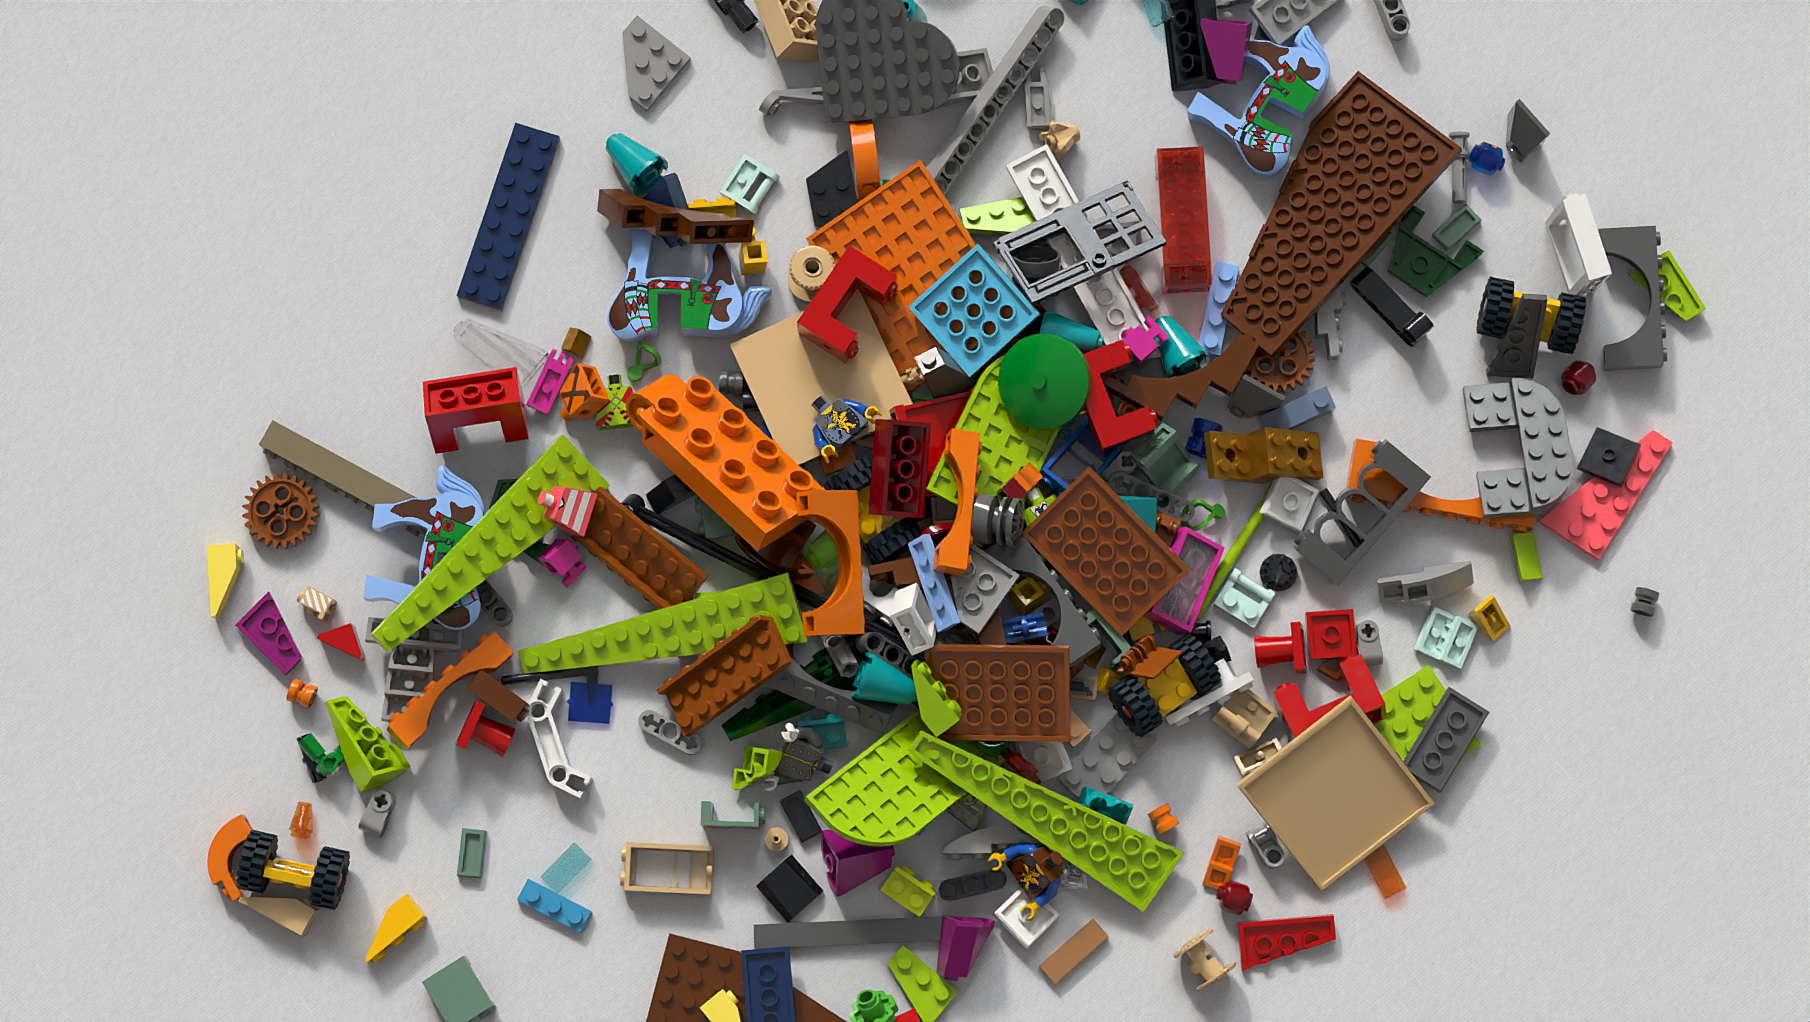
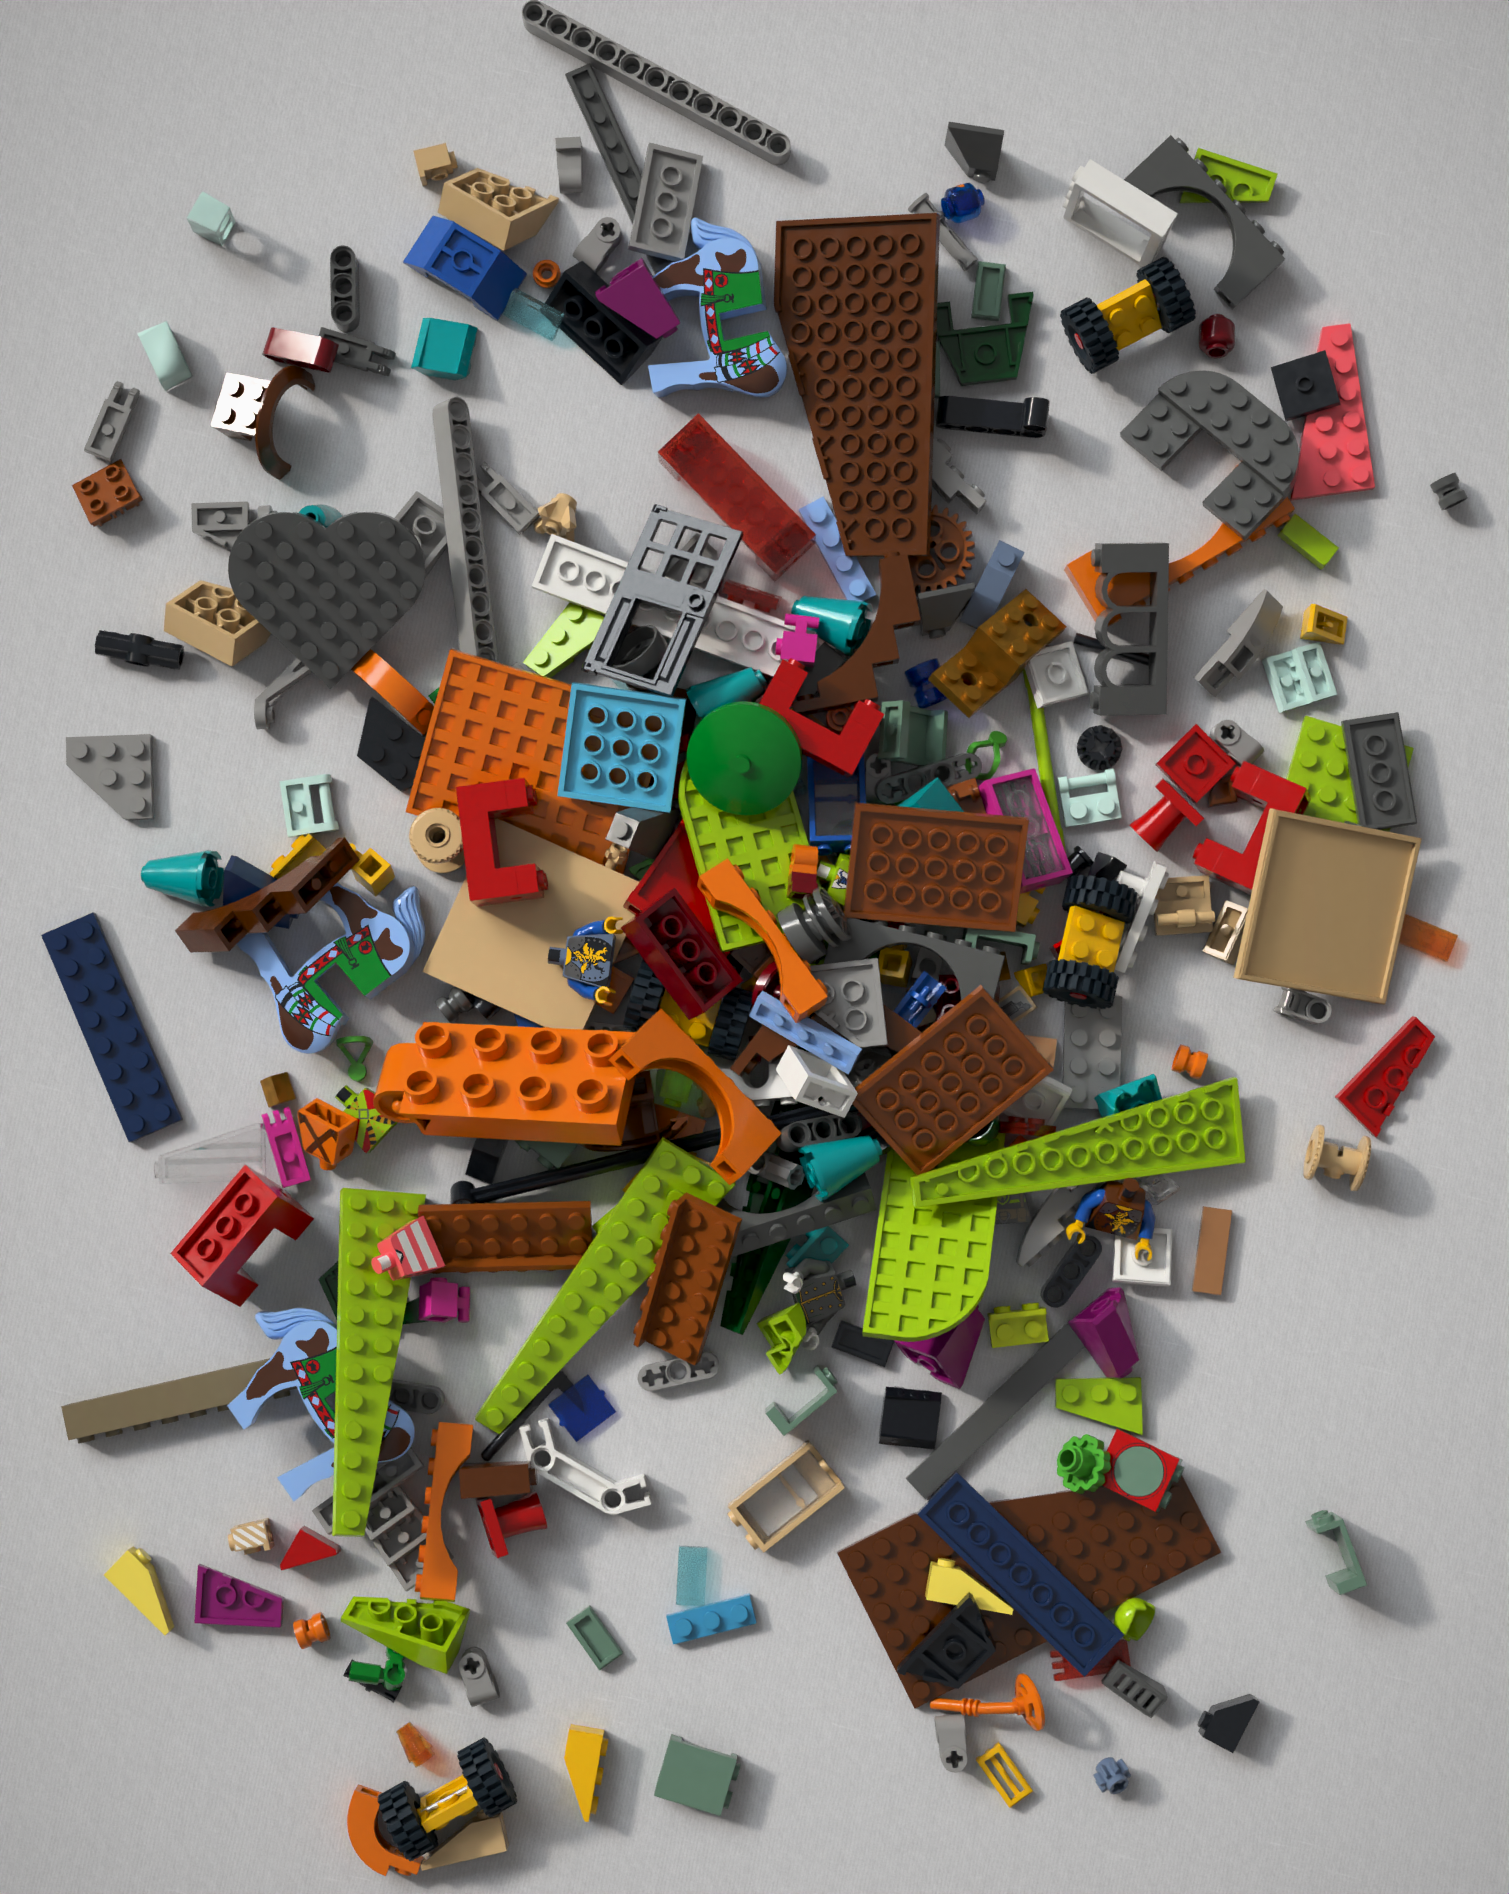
camera: 40 degrees left, 5 degrees up
(268, 494) = (167, 1487): dark orange gear -> none
(779, 845) = (856, 1376): tan tile -> none
(935, 706) = (905, 1144): lime slope -> none
(1146, 659) = (1058, 932): dark orange hinge -> none
(1221, 862) = (1275, 1056): orange slope -> none
(1234, 897) = (1314, 1077): dark red head -> none
(1520, 343) = (1140, 348): dark grey wing -> none

